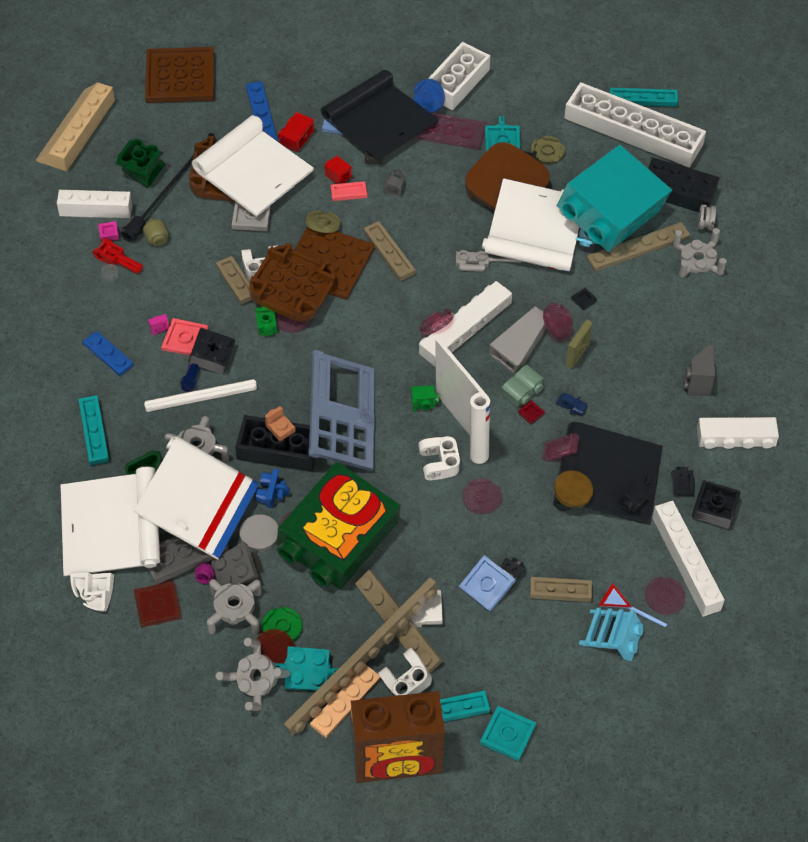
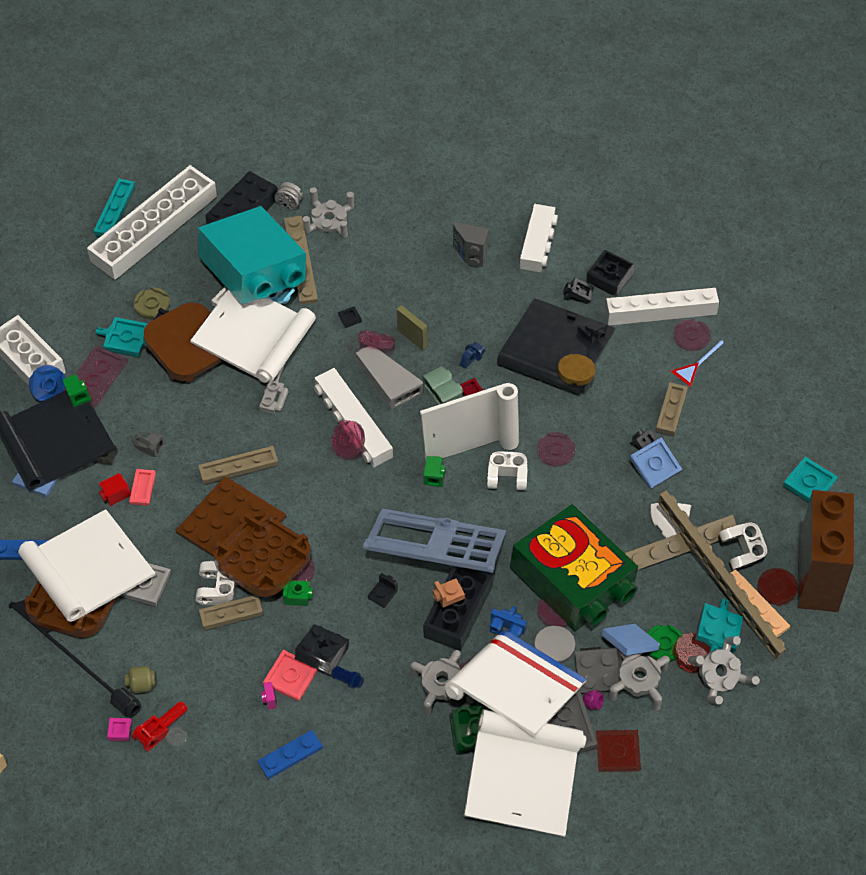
camera: 75 degrees left, 0 degrees up
(87, 585) = (598, 807): white brick -> none
(93, 430) = (391, 781): teal plate -> none
(94, 204) = (76, 736): white brick -> none
(141, 161) = (34, 676): dark green piece -> none
(200, 395) = (372, 672): white axle -> none
(271, 589) = (630, 639): none -> medium blue tile
(284, 387) = (383, 590): none -> black bracket
(296, 132) = (44, 518): red brick -> none
(322, 222) = (181, 516): olive tile -> none
(425, 114) = (76, 390): none -> green brick
(464, 706) = (779, 524): teal plate -> none
(561, 447) = (524, 370): clear pink tile -> none
(624, 633) = (727, 367): medium azure plate -> none

